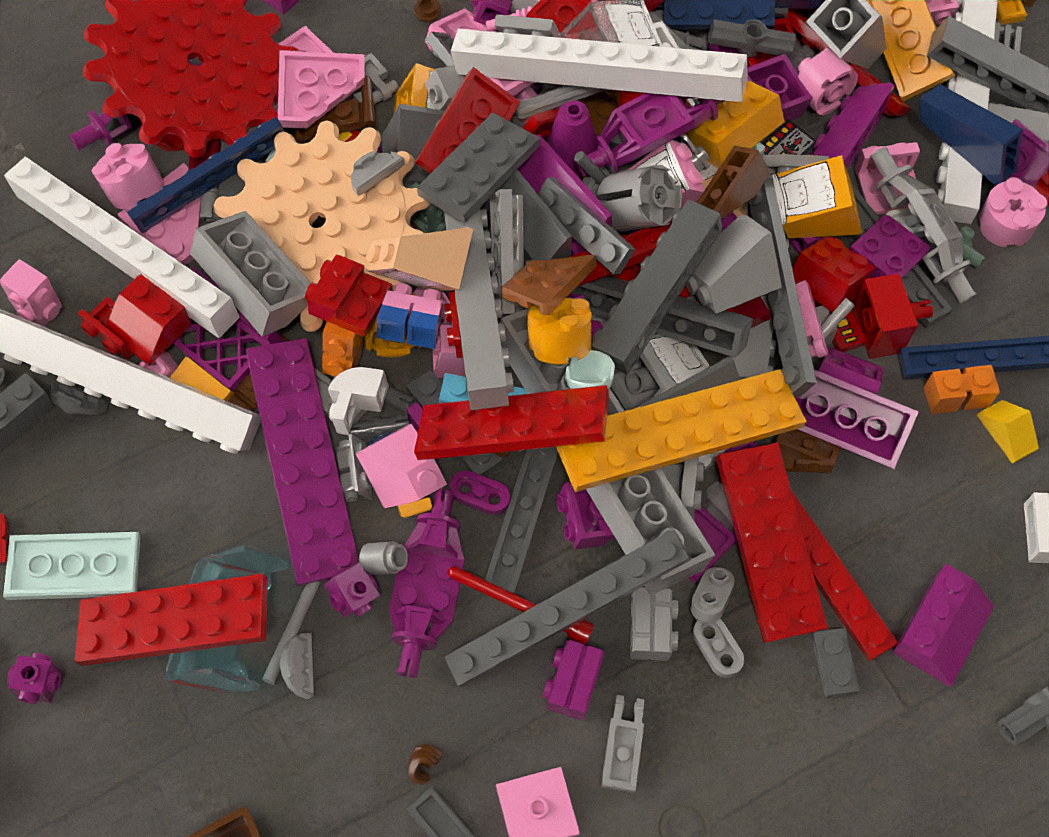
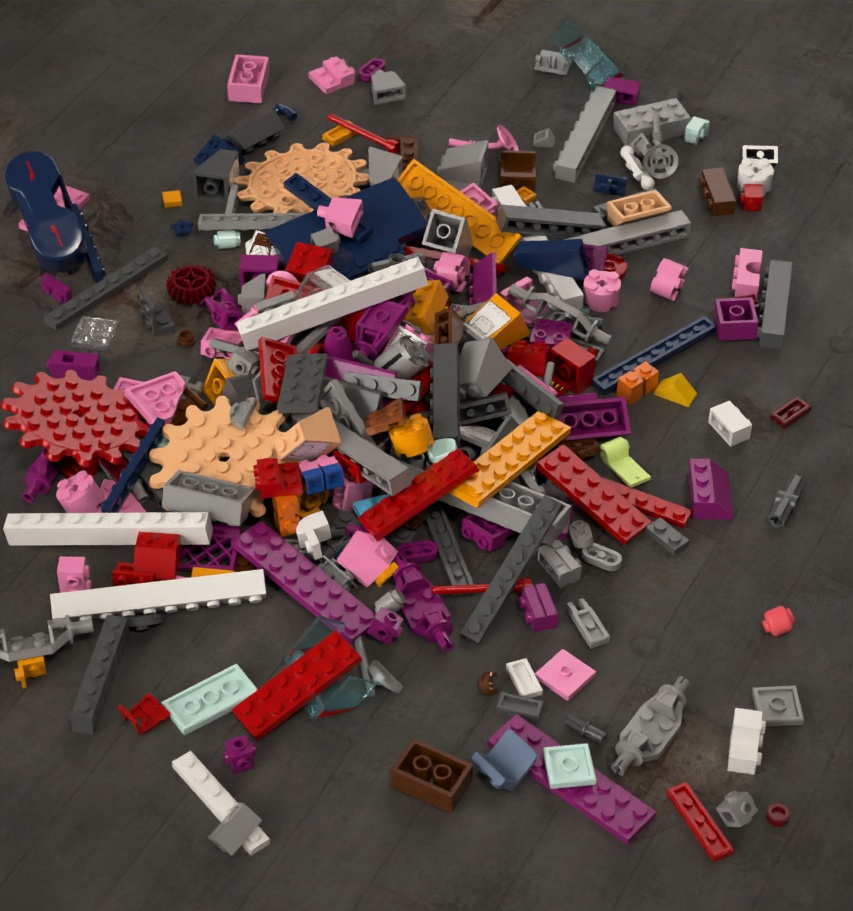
camera: 30 degrees left, 20 degrees down
(478, 781) = (524, 678): none -> white tile
(852, 508) = (616, 457): none -> yellowish green door

